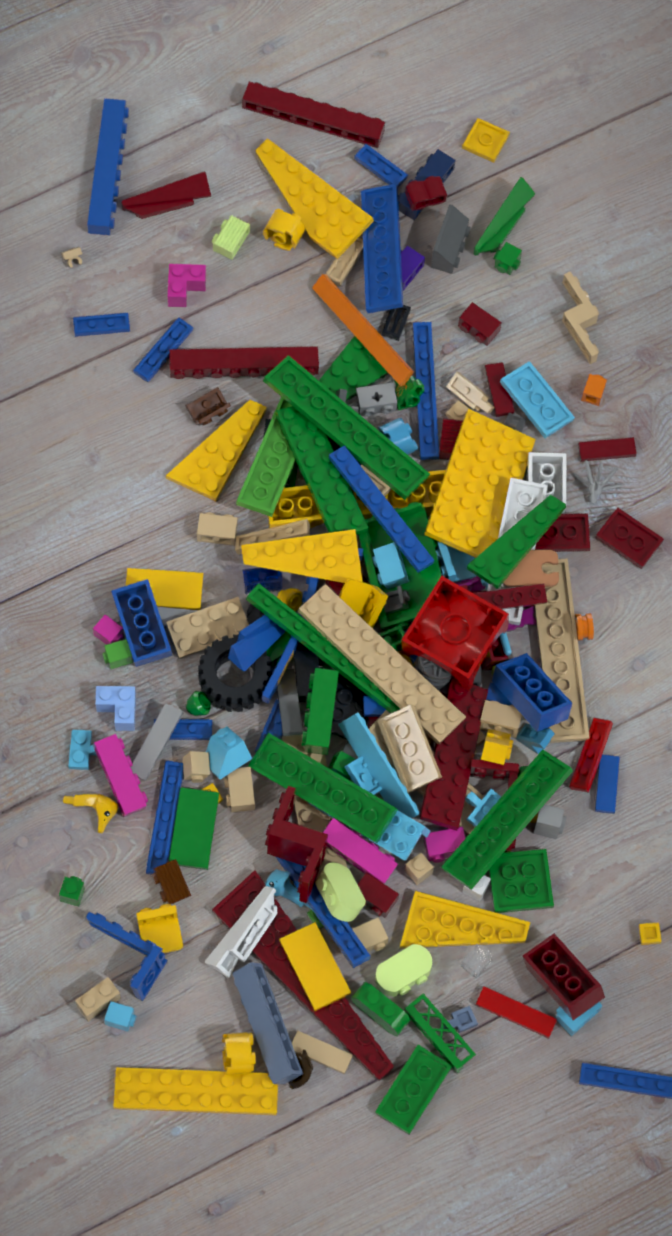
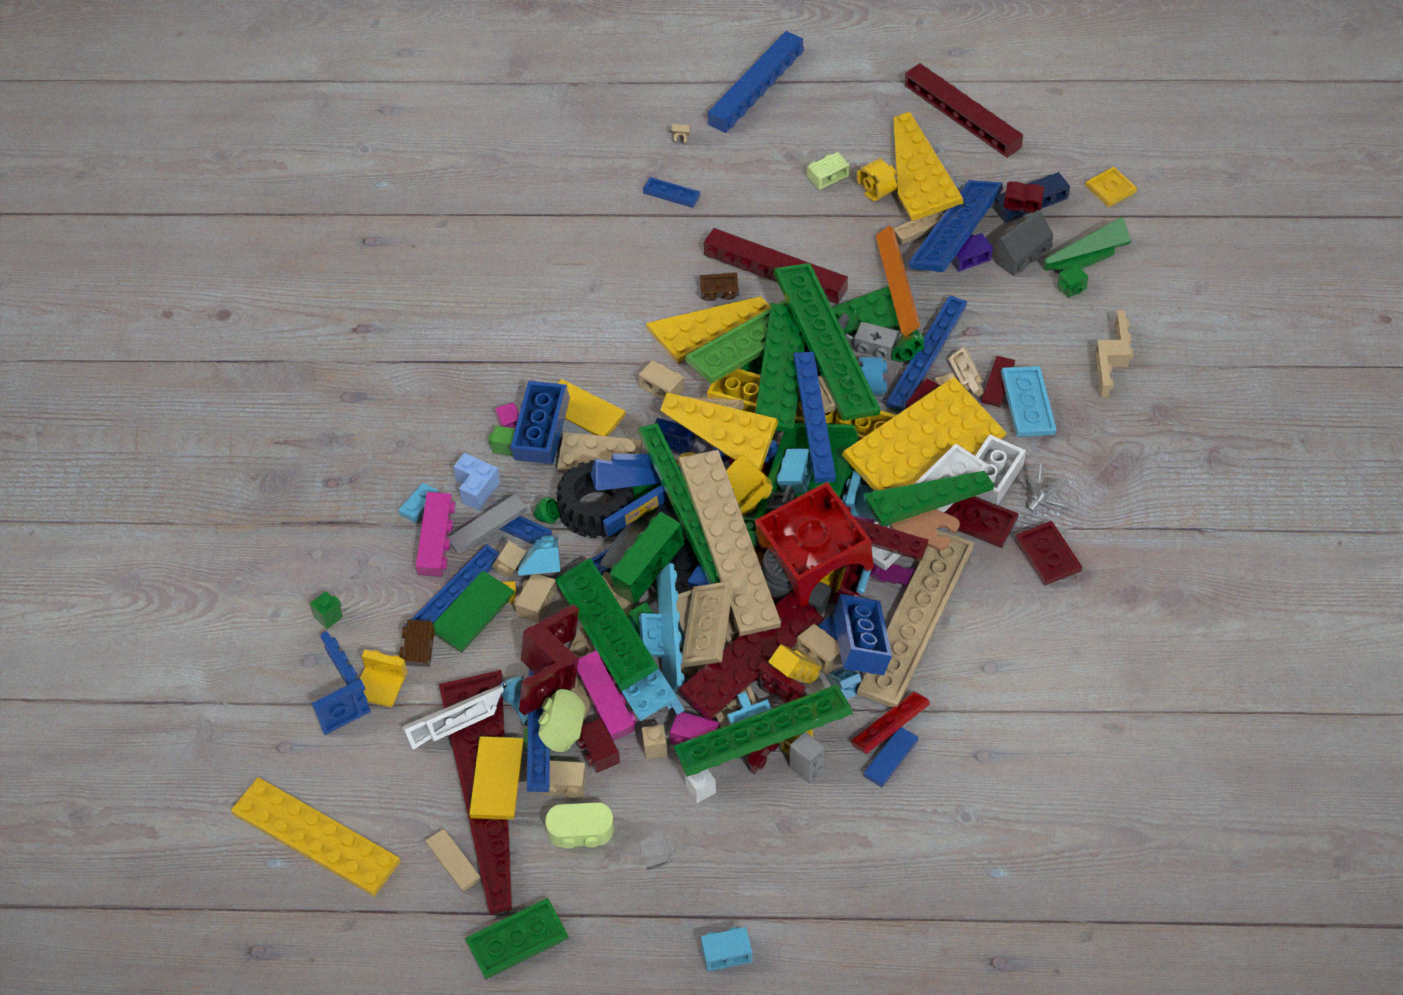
camera: 35 degrees right, 15 degrees down
(97, 999) = (283, 710): tan brick -> none
(104, 806) = (404, 553): yellow animal -> none
(120, 1016) = (292, 734): medium azure brick -> none
(161, 350) = (697, 235): blue tile -> none
(168, 197) = (794, 121): dark red wedge -> none
(183, 279) = (763, 184): dark pink brick -> none
(238, 1053) = (372, 817): yellow brick -> none
(267, 1023) = (417, 806): sand blue brick -> none
(306, 1067) = (421, 862): dark brown hat -> none
(380, 166) = (997, 166): blue plate -> none
(380, 1009) = (532, 846): green brick -> none
(392, 334) = (939, 291): black tile -> none
(434, 1038) = (568, 901): green fence -> none
(449, 923) = (652, 805): yellow wing -> none
(462, 1020) = (606, 898): sand blue plate -> none
(479, 324) = (1012, 321): dark red brick -> none
(515, 422) = (997, 412): dark grey tile -> none
(516, 1012) = (665, 920): red tile -> none
(521, 881) = (747, 801): green plate -> none
(563, 976) = (728, 903): dark red brick -> none
(584, 626) = (953, 606): orange wheel -> none
(594, 389) = (1090, 416): orange brick -> none
(607, 449) = (1073, 471): dark red tile -> none
(650, 933) = (847, 912): yellow plate -> none

